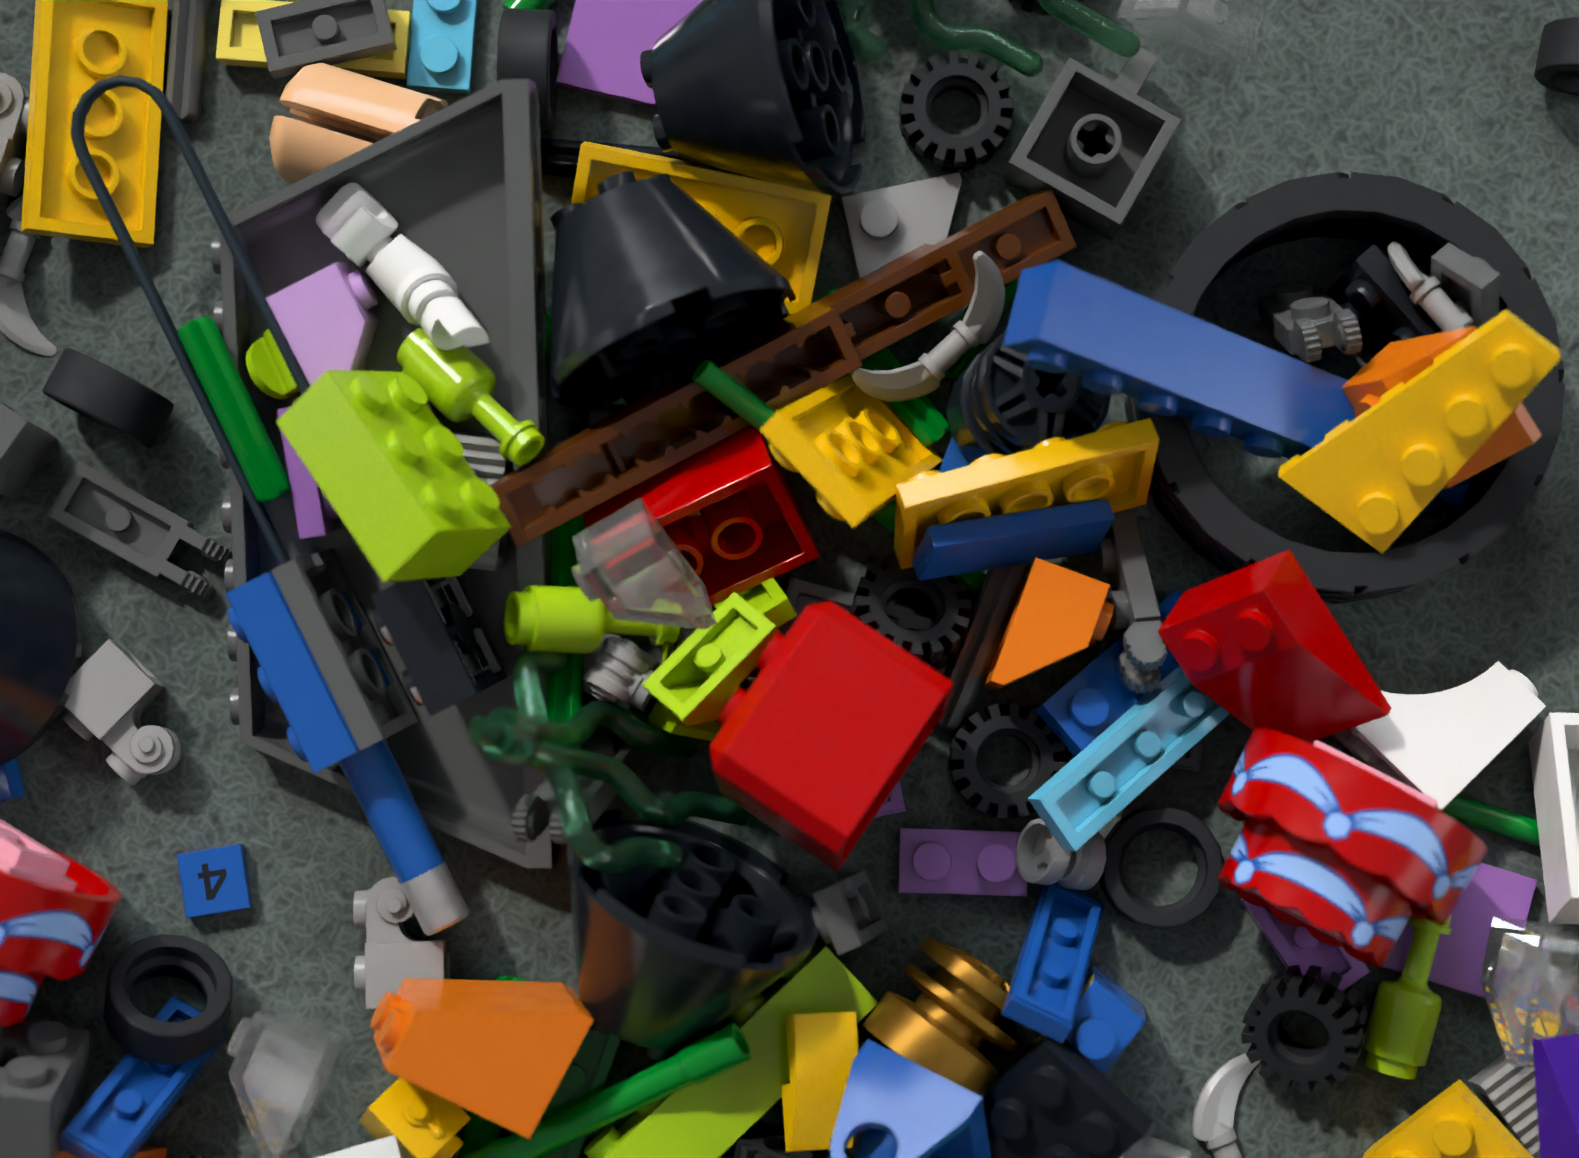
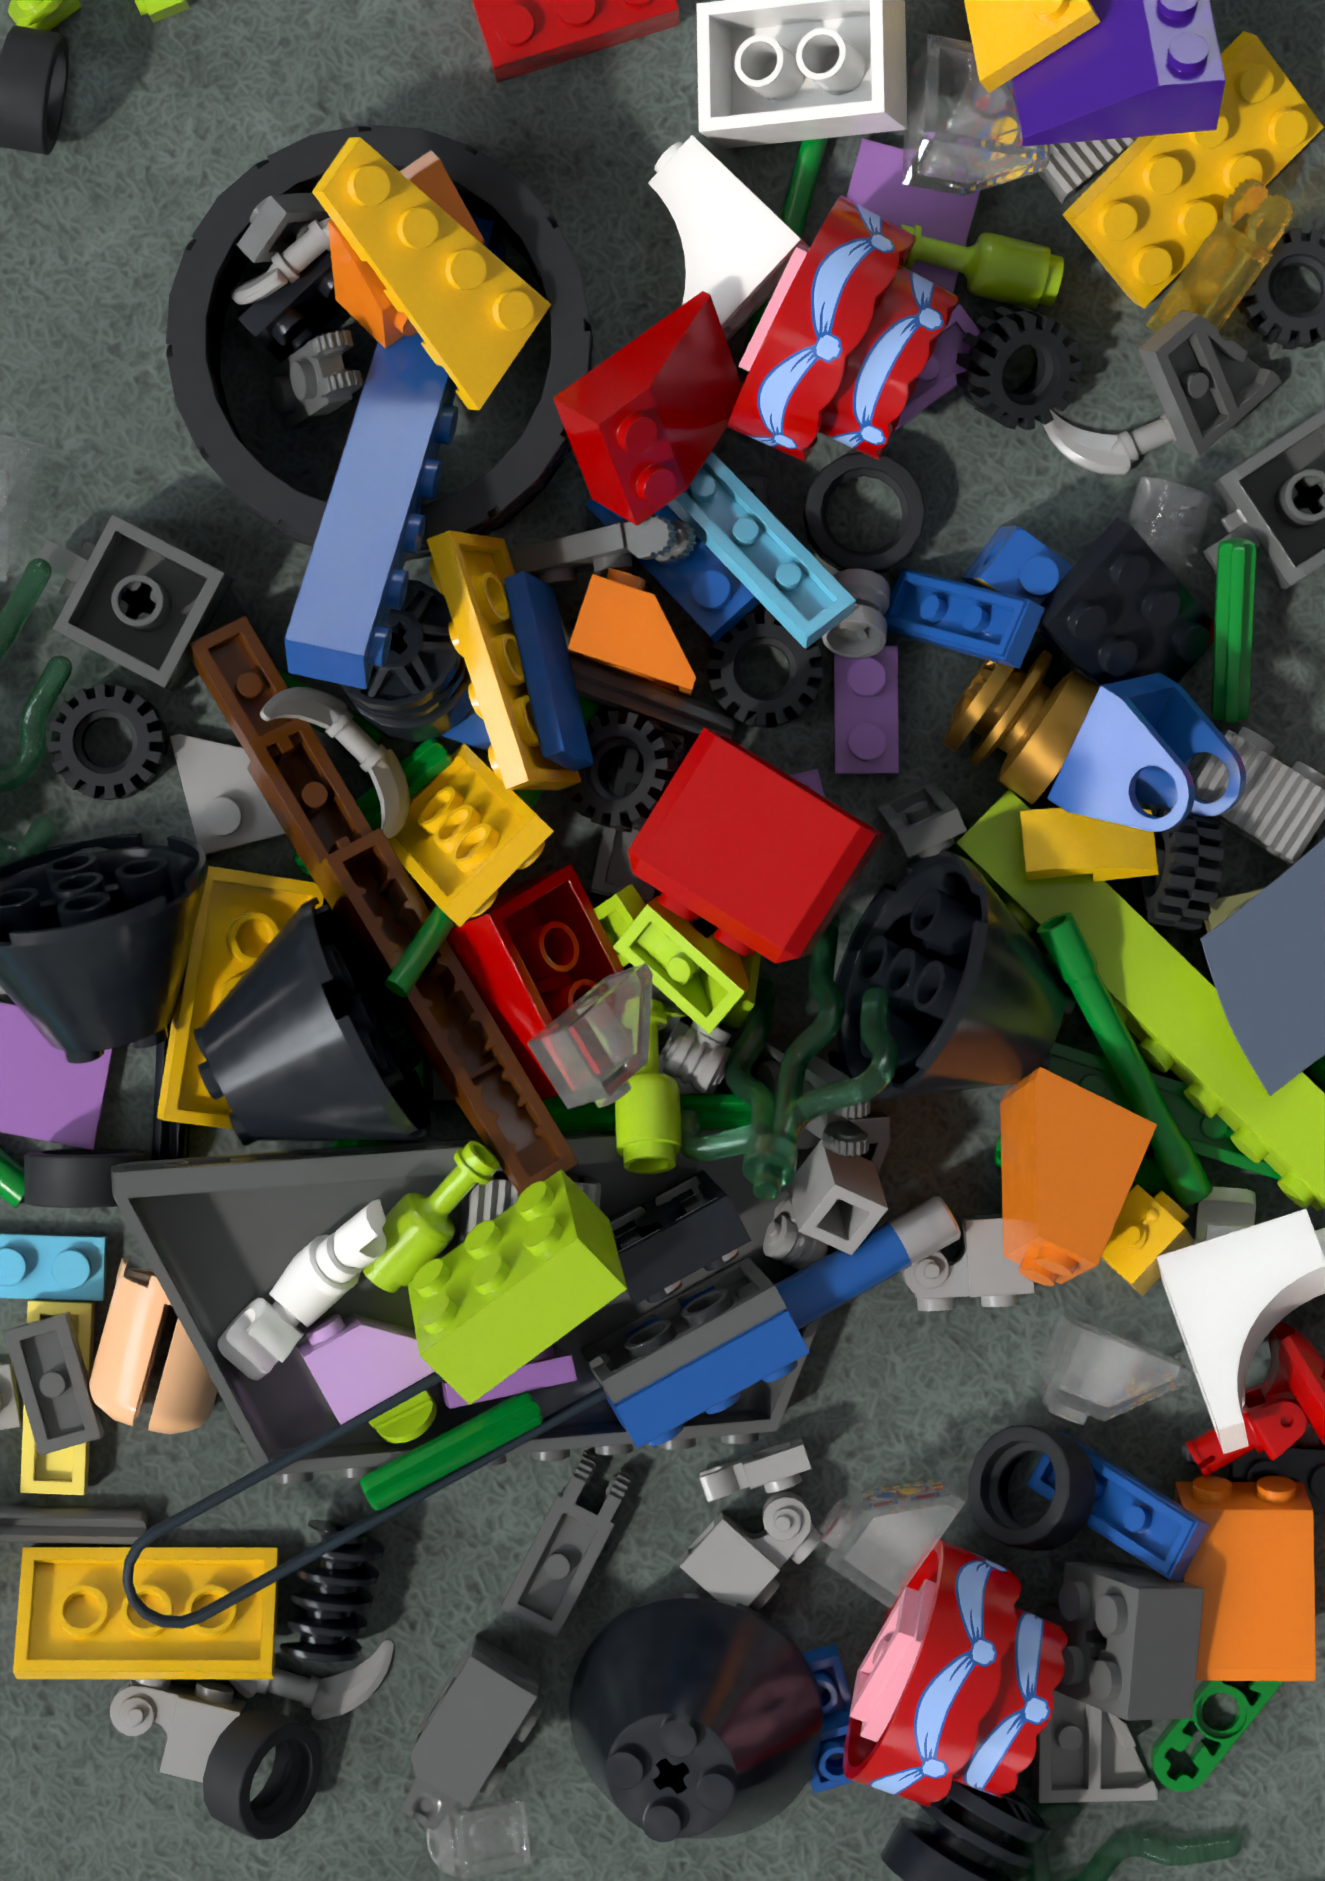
camera: 85 degrees left, 5 degrees up
(99, 298) = (334, 1598): none -> black piece
(108, 397) = (438, 1581): black tyre -> none
(128, 849) = (888, 1534): none -> clear slope
(205, 738) = (772, 1467): none -> light grey plate
(214, 880) = (912, 1450): blue tile -> none
(463, 801) = (829, 1203): none -> light grey brick

